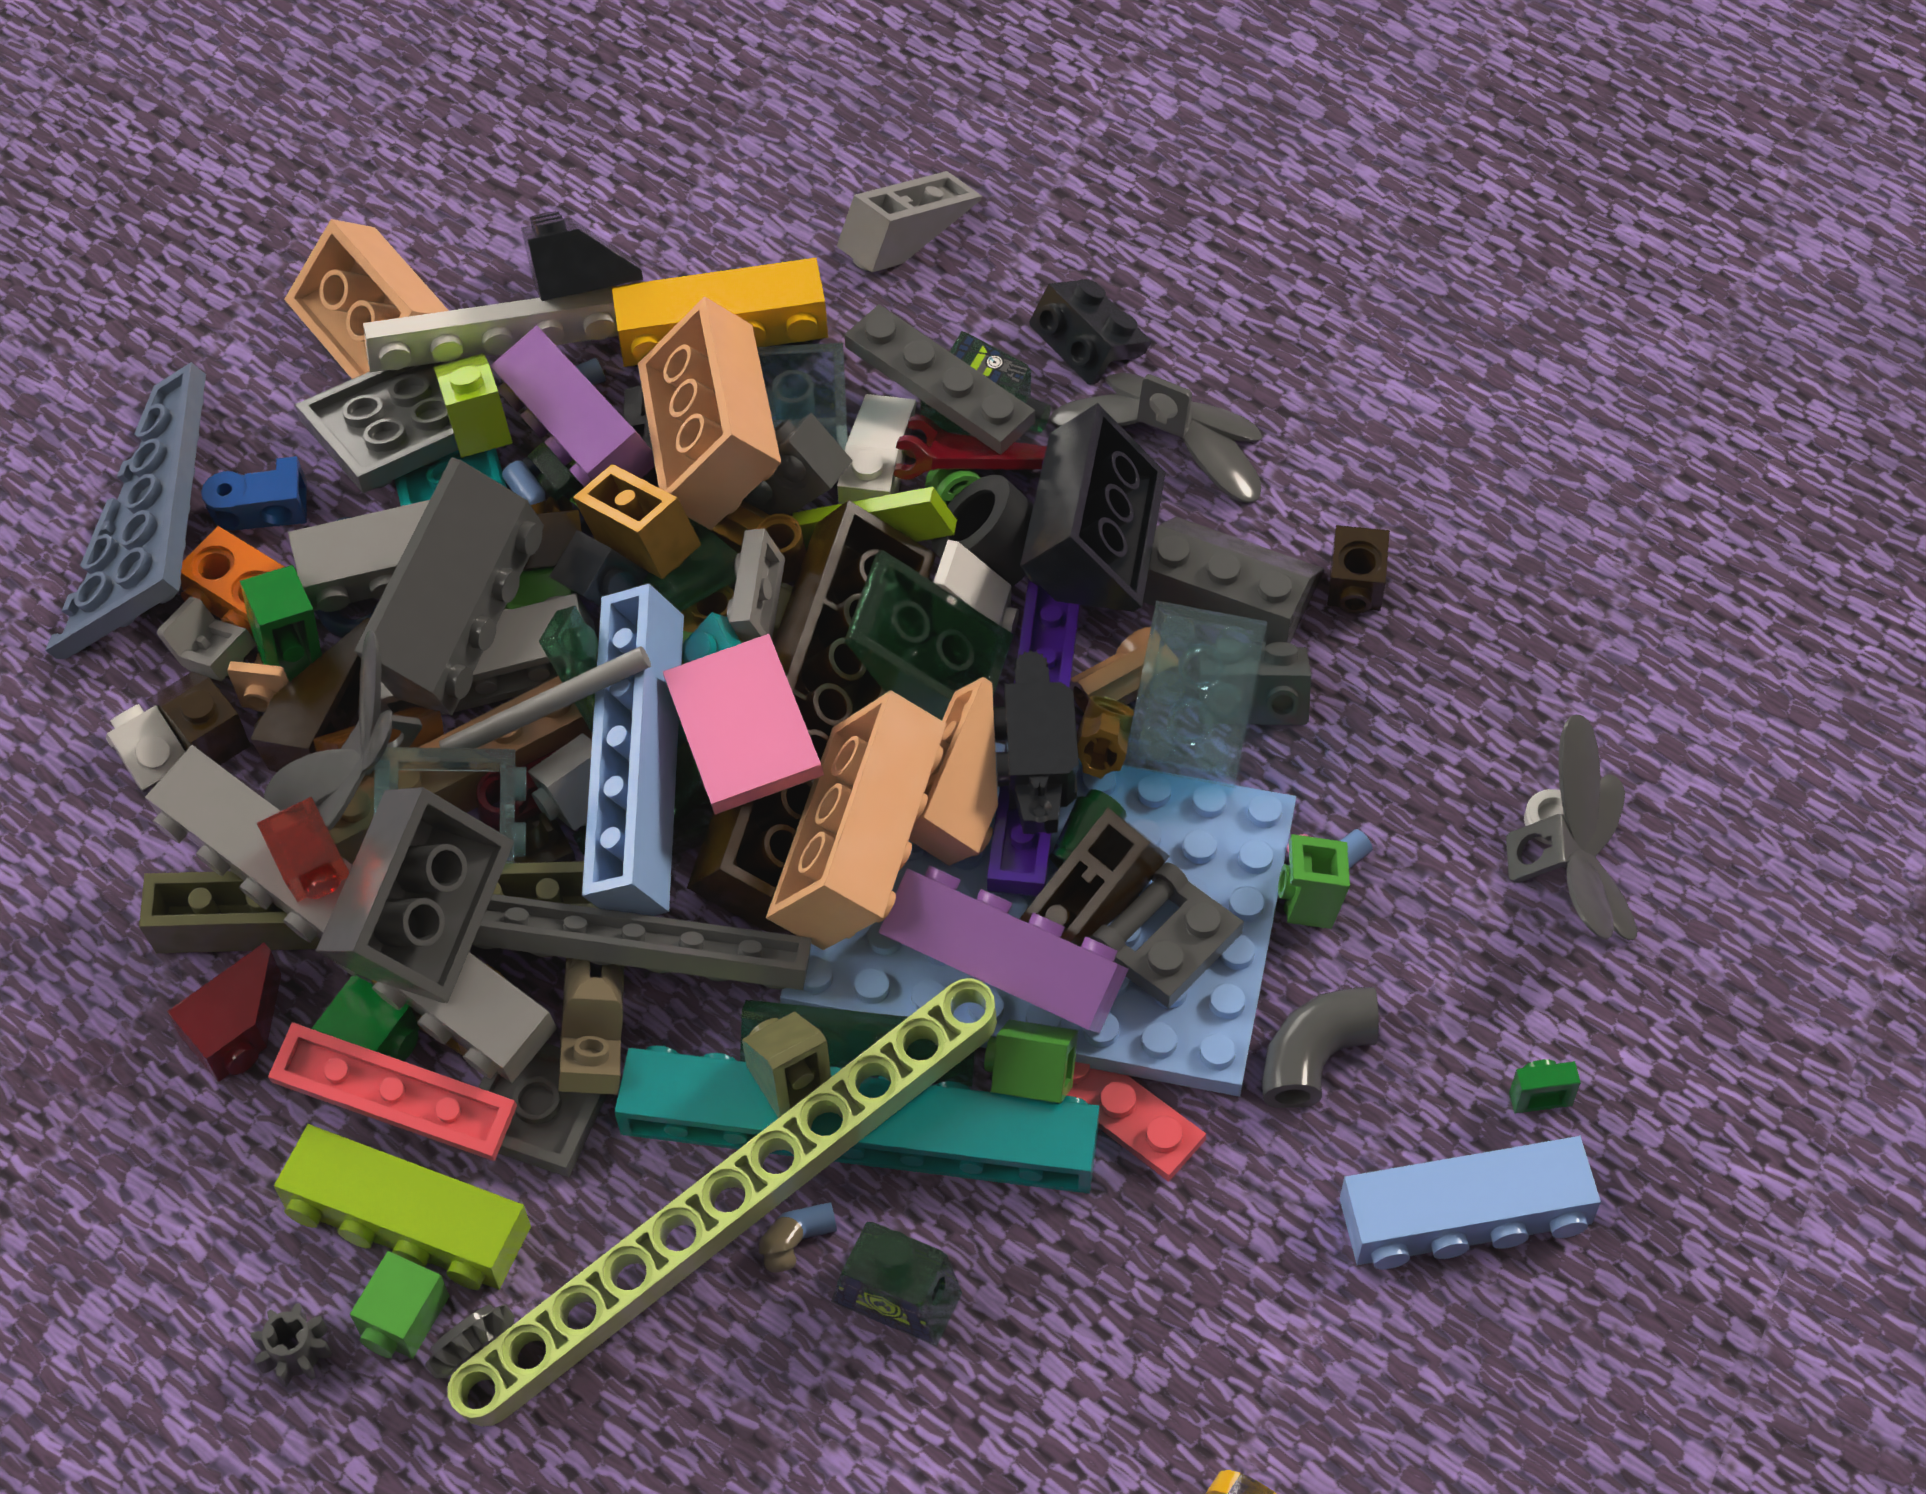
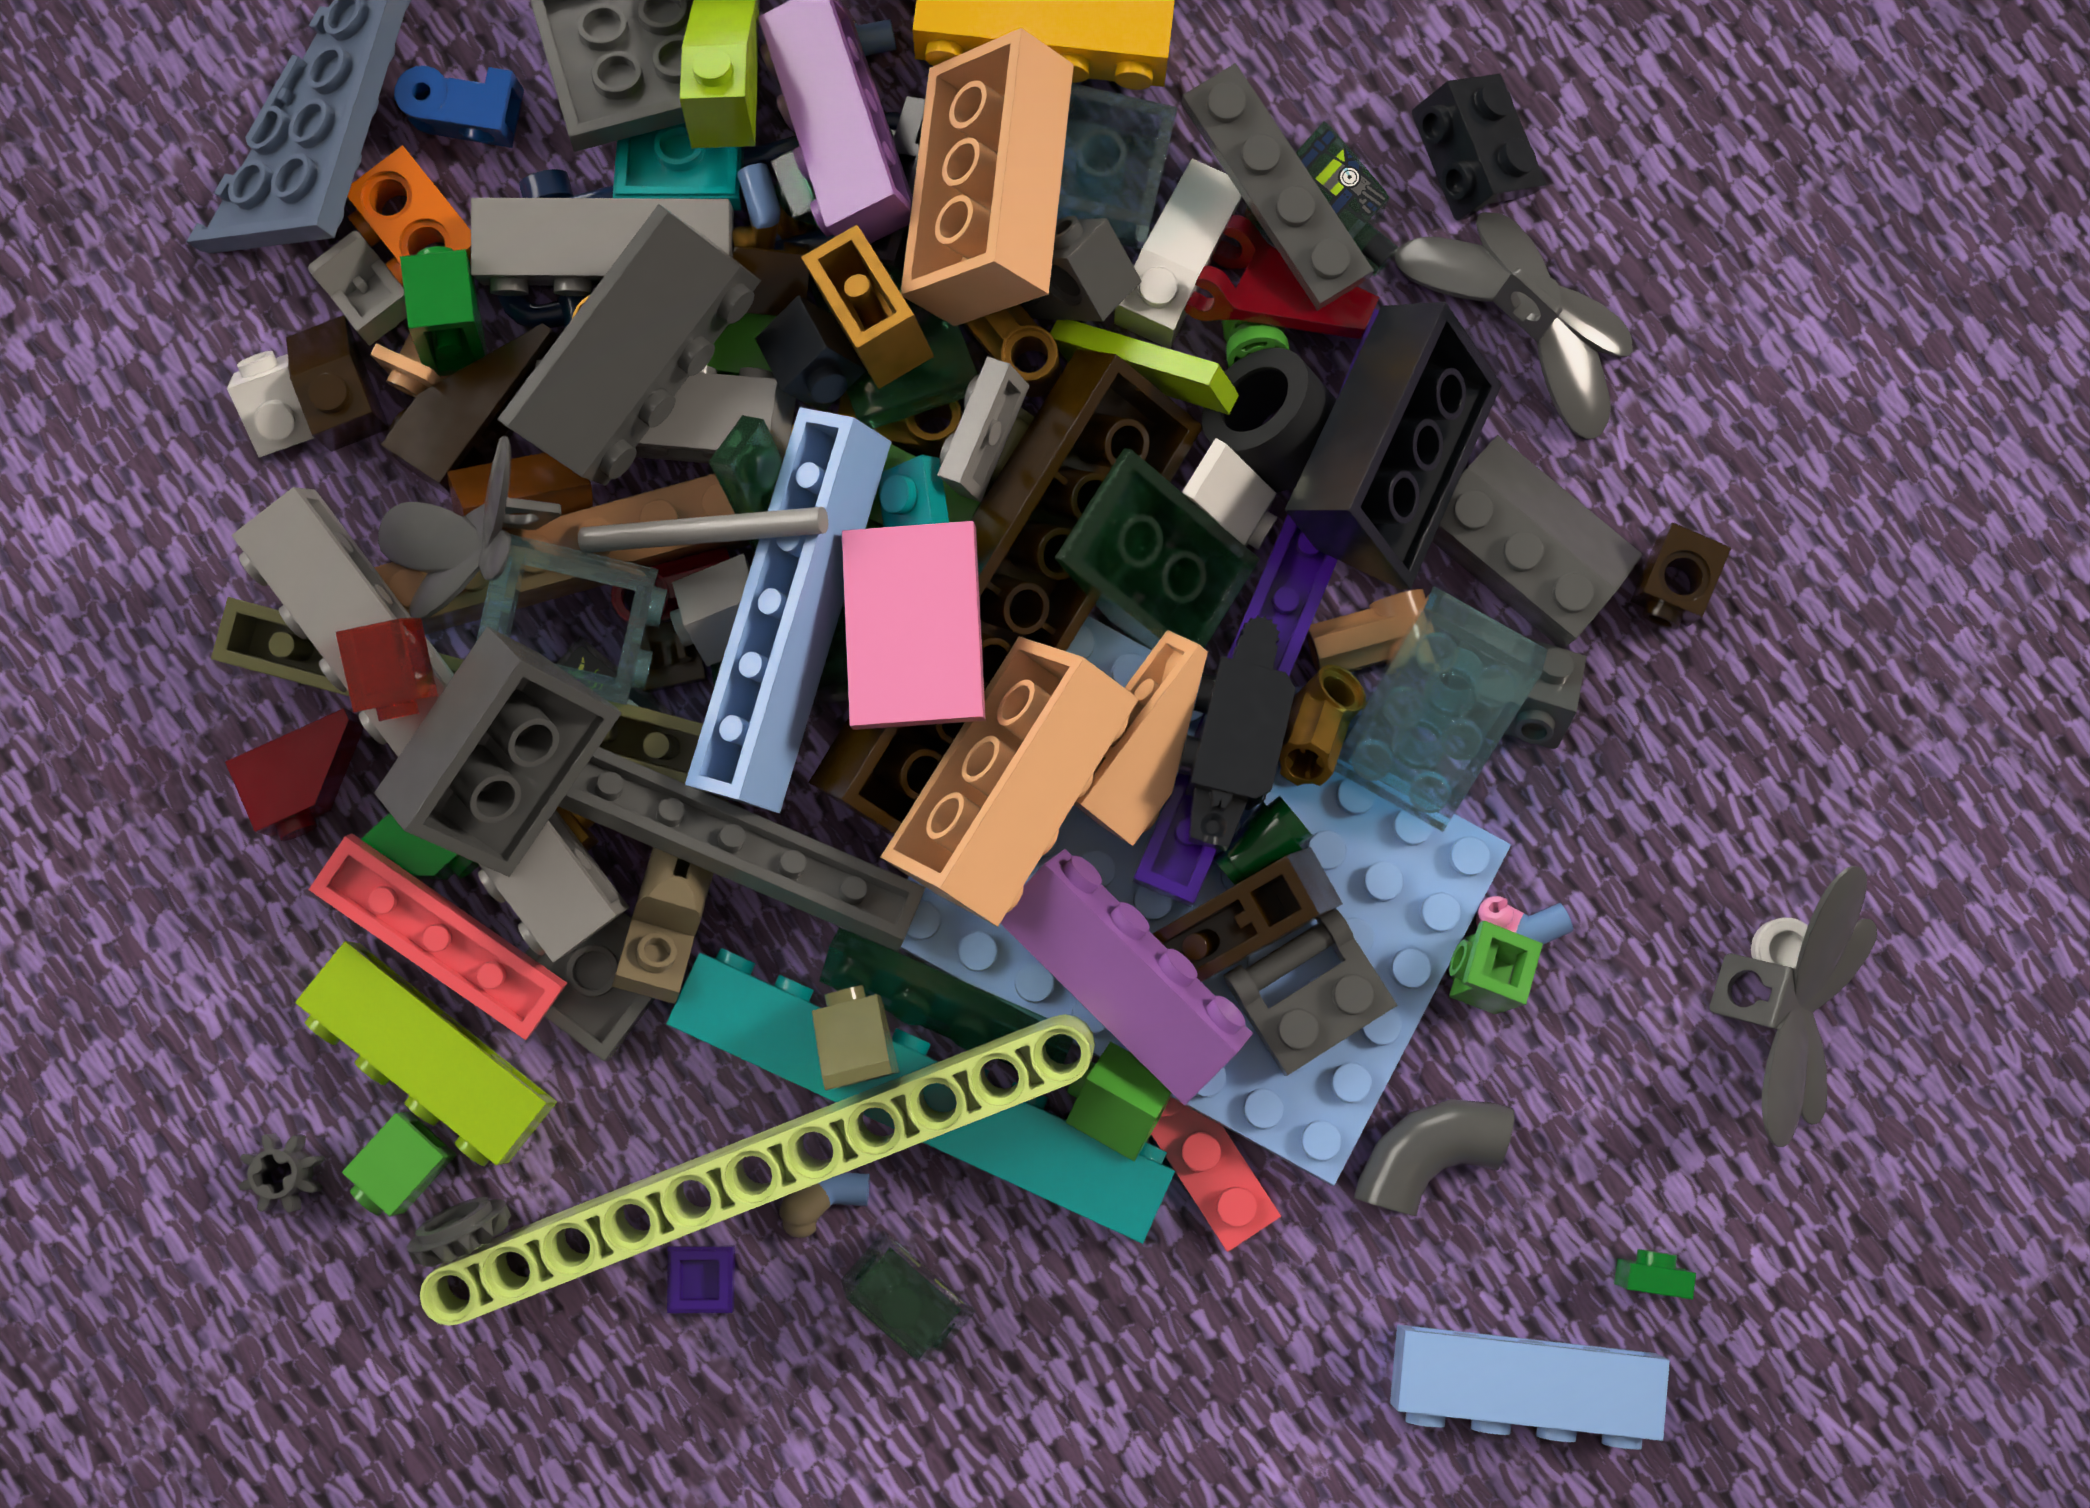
camera: 15 degrees right, 25 degrees up
(703, 1334) = (700, 1279): none -> dark purple tile

